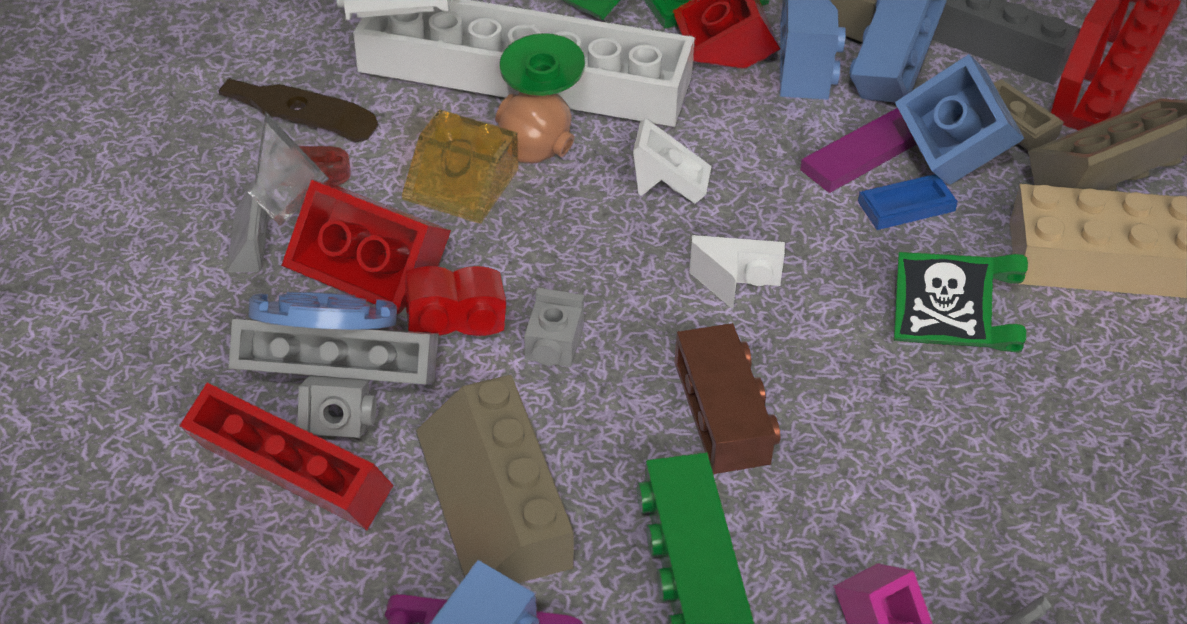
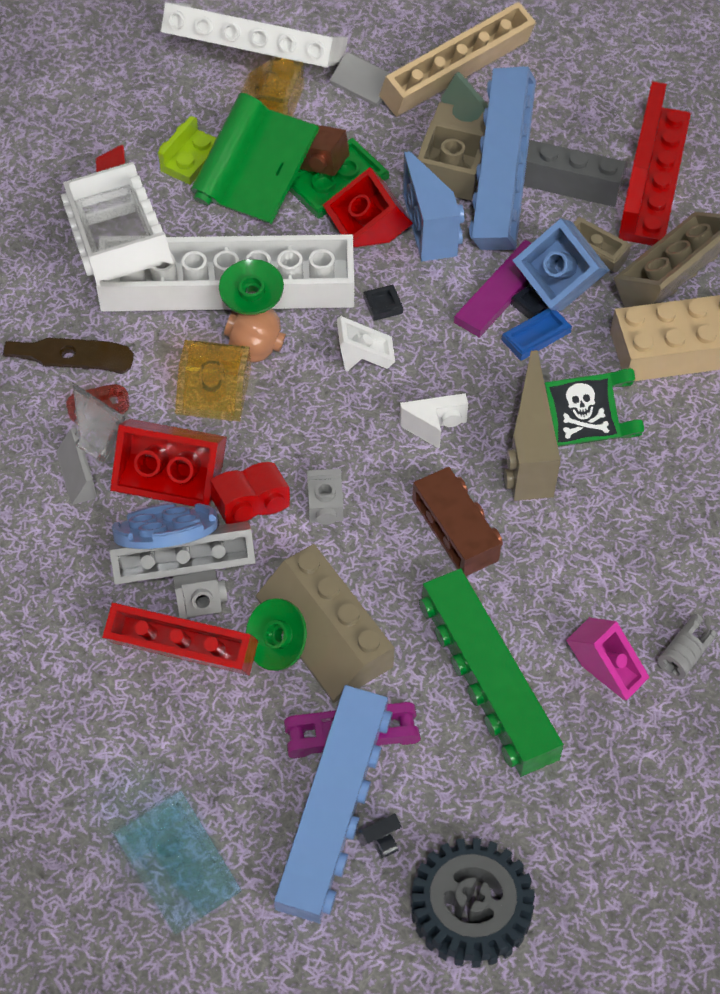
camera: 15 degrees left, 10 degrees up
(424, 481) = (267, 625): none -> green dish
(714, 129) = (383, 302): none -> black tile
(857, 318) = (534, 453): none -> dark tan slope
(907, 164) = (528, 302): none -> black tile

